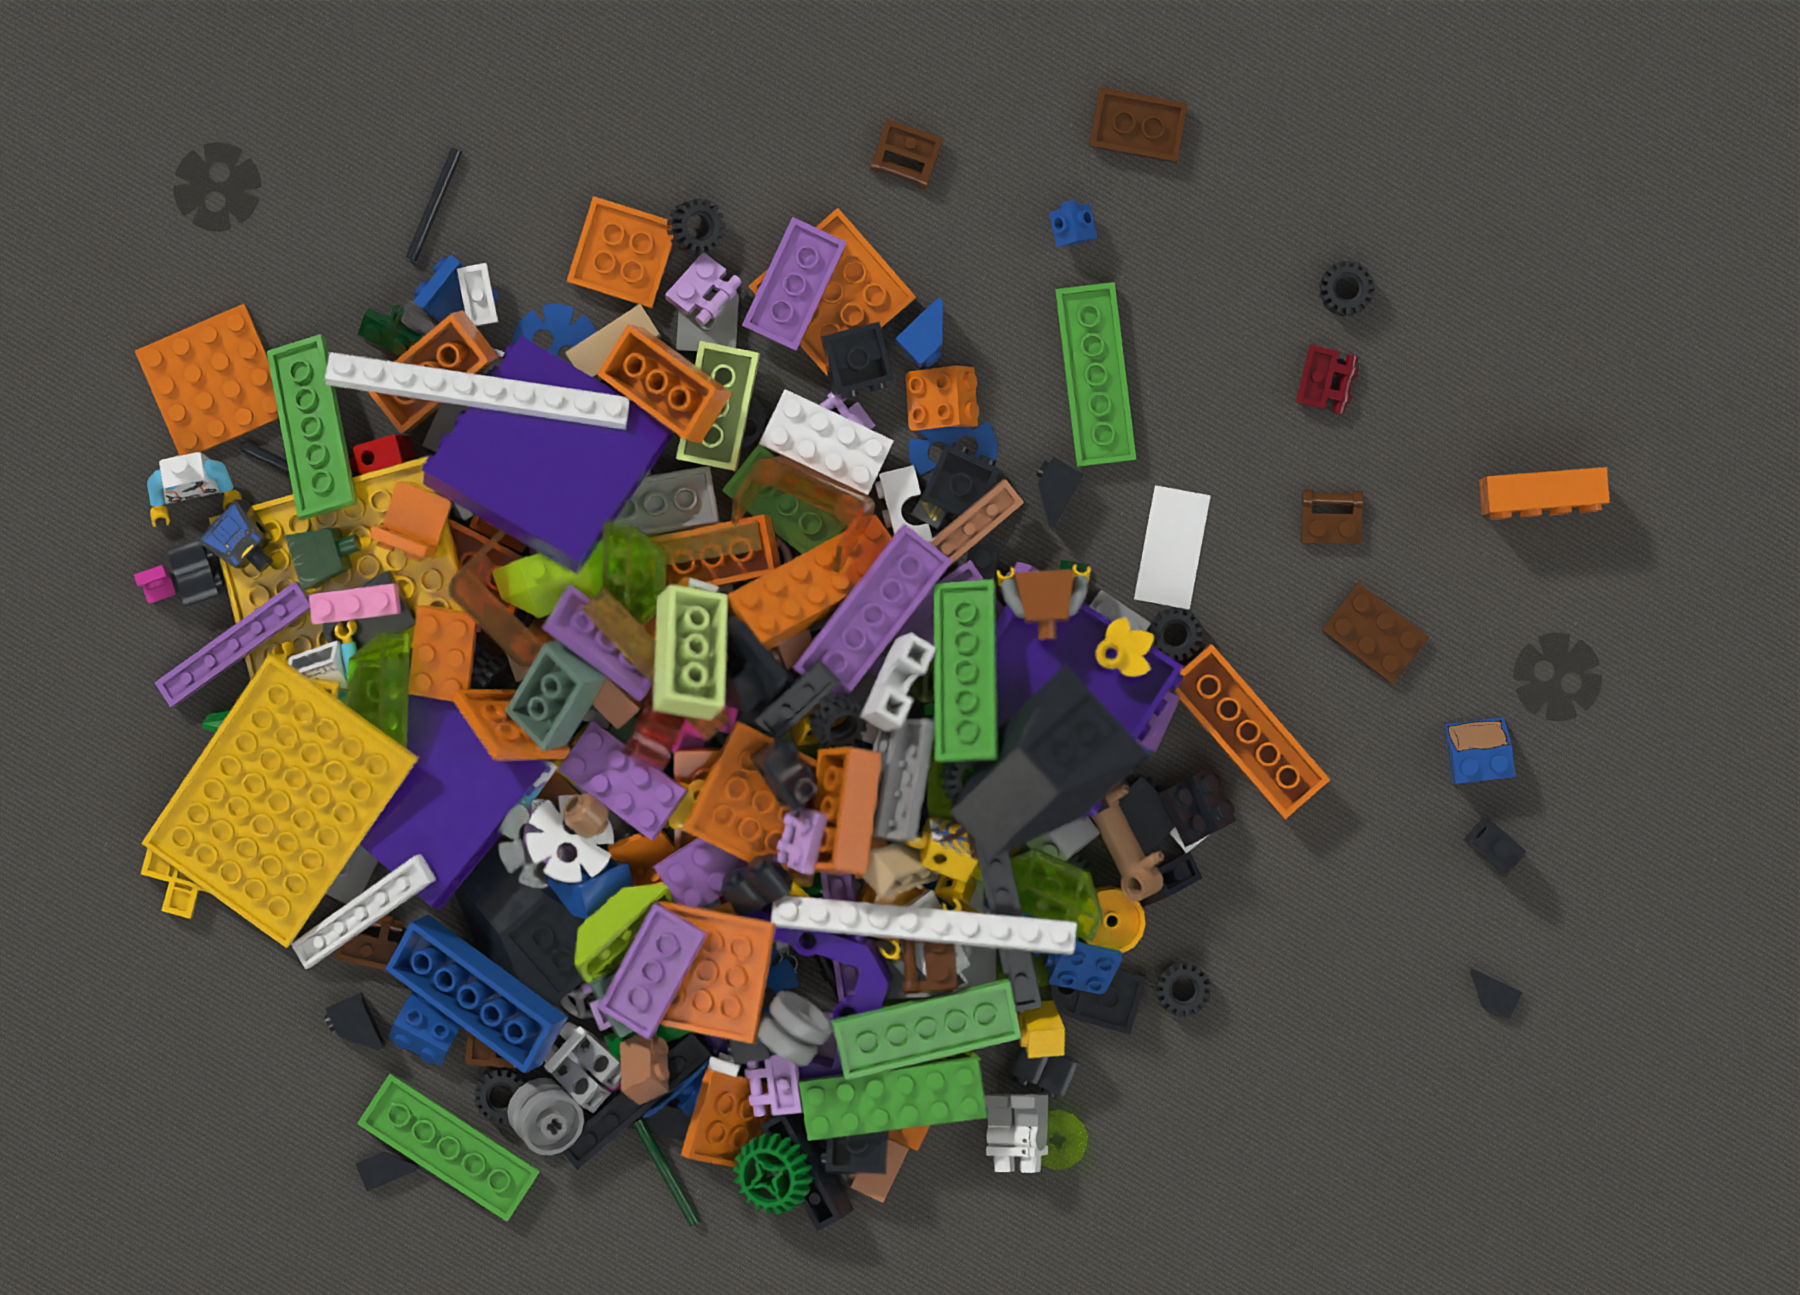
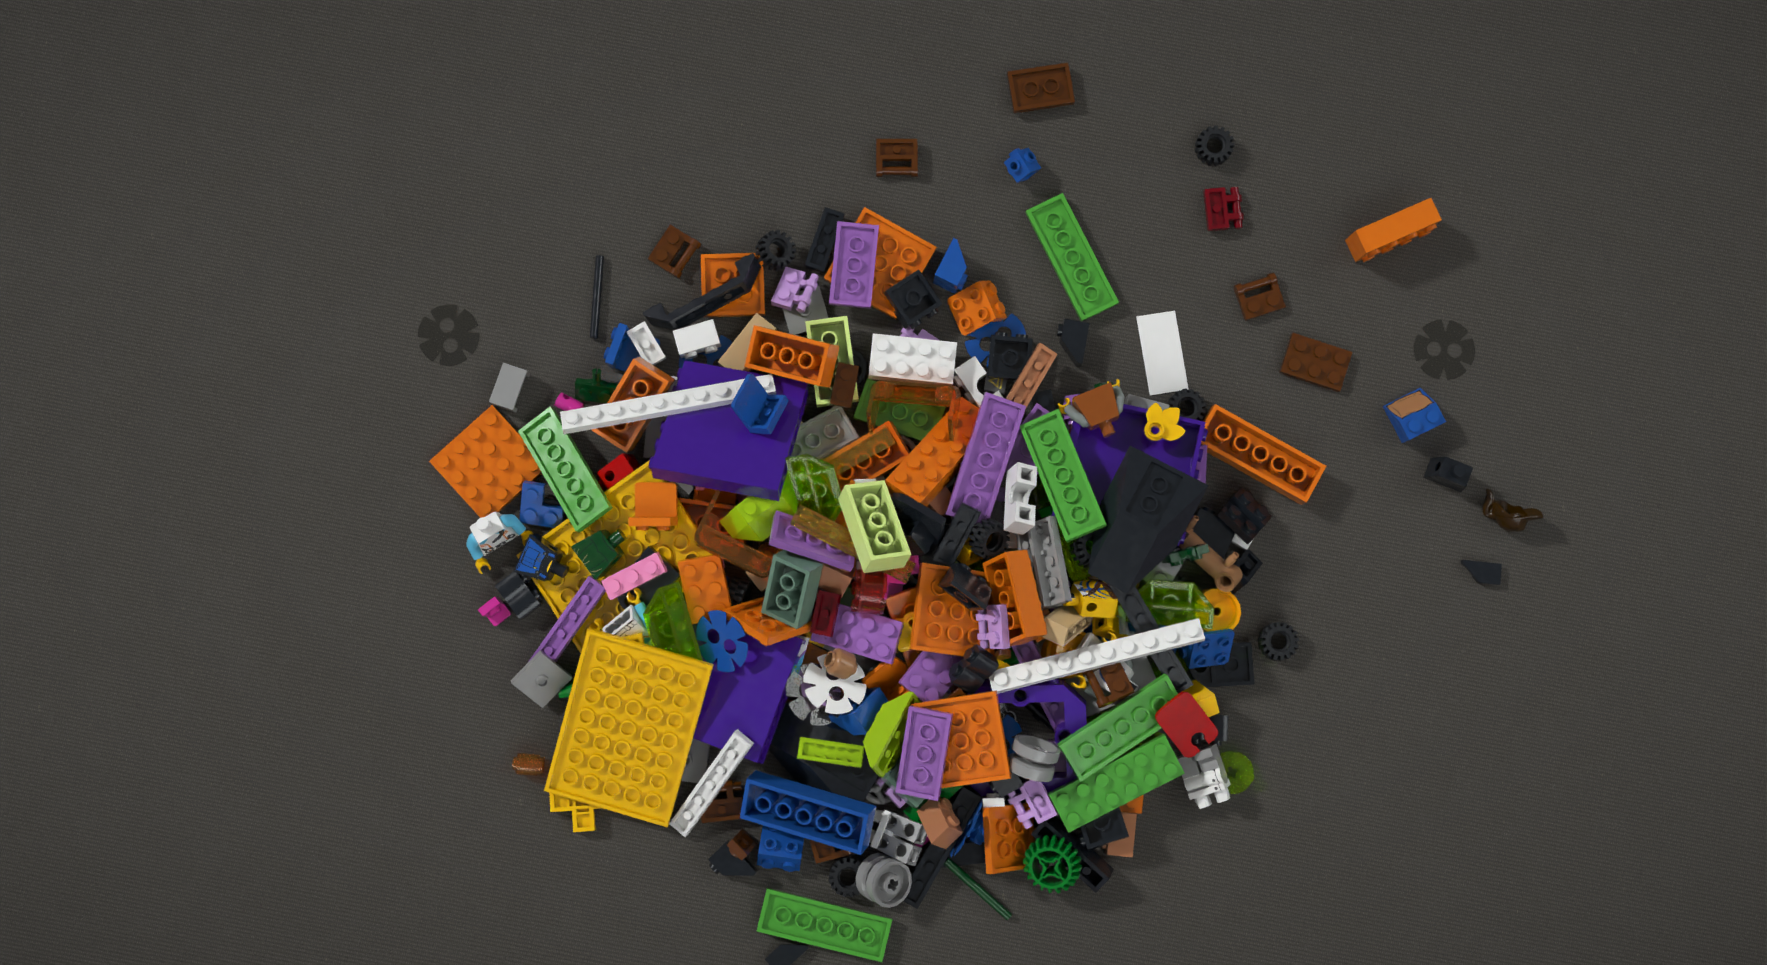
camera: 25 degrees left, 5 degrees down
(132, 801) = (528, 764): none -> clear orange brick
(187, 695) = (541, 679): none -> light grey plate
(253, 465) = (533, 508): none -> blue plate
(273, 288) = (508, 387): none -> light grey panel
(347, 339) = (567, 403): none -> dark pink piece
(375, 1005) = (741, 845): none -> reddish brown plate
(423, 739) = (732, 631): none -> blue piece
(533, 926) = (830, 752): none -> lime plate
(548, 311) = (697, 339): none -> white brick
(553, 171) = (668, 248): none -> reddish brown plate
(589, 742) = (825, 613): none -> dark red plate
(592, 438) = (756, 407): none -> blue bracket
(648, 242) = (709, 302): none -> black slope
(721, 446) = (844, 385): none -> reddish brown plate
(767, 234) = (824, 240): none -> black plate
(1012, 1046) = (1182, 719): none -> red piece
(1102, 833) = (1193, 552): none -> dark green plate
(1554, 930) = (1507, 516): none -> dark brown hair

